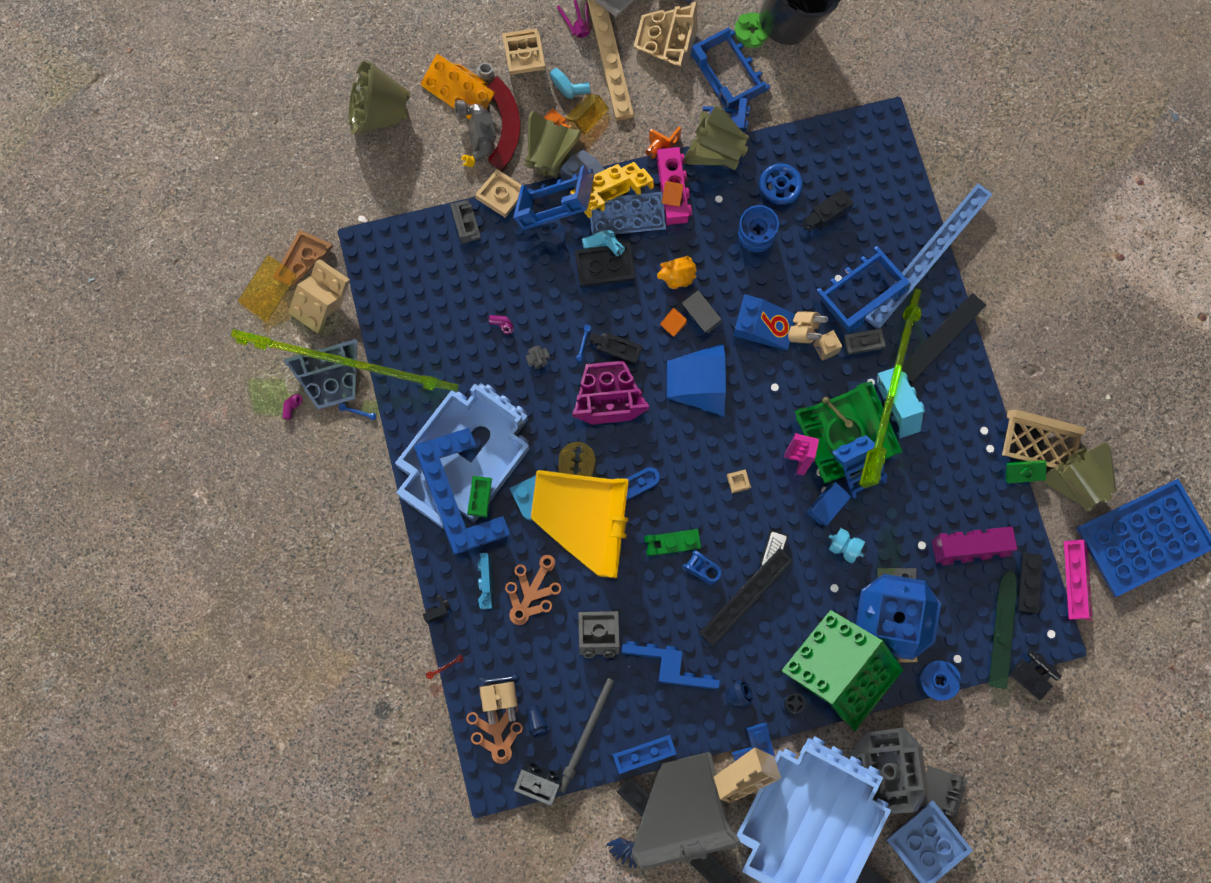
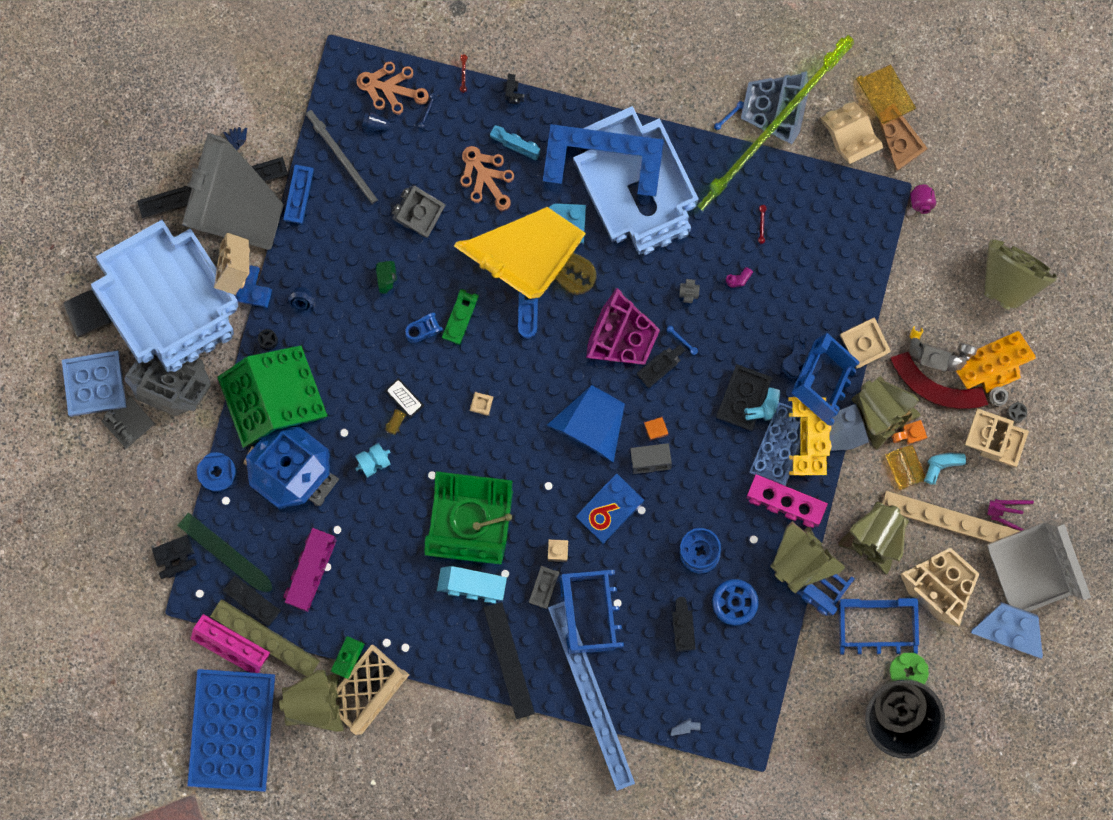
camera: 120 degrees right, 5 degrees up
(290, 404) = (766, 60): magenta arm -> none
(347, 211) = (923, 199): none -> magenta head
(428, 337) = (762, 209): none -> dark red hinge
(465, 221) = (854, 296): dark grey hinge -> none
(479, 496) = (588, 171): green plate -> none
(493, 47) = (1017, 408): none -> dark grey wheel
(499, 697) = (411, 100): tan piece -> none
(538, 783) = (325, 97): bracket -> none
(659, 97) = (878, 536): none -> olive brick
(660, 141) = (838, 515): orange bracket -> none
(670, 665) = (357, 254): blue bracket -> none
(672, 194) = (774, 489): orange slope -> none
(675, 628) = (386, 276): none -> dark green rock
(678, 272) = (700, 456): light orange animal -> none
(746, 597) = (378, 351): black tile -> none
(800, 546) = (395, 422): none -> clear yellow pin
(803, 450) = (469, 464): dark pink fence -> none
(804, 327) = (587, 541): tan piece -> none
(828, 504) = (417, 467): blue hinge -> none
(852, 459) = (442, 514): blue plate -> none
(876, 457) = (430, 519): clear neon green bar -> none
(906, 170) = (685, 727): none -> sand blue bar
(1053, 553) = (265, 638): none -> olive plate

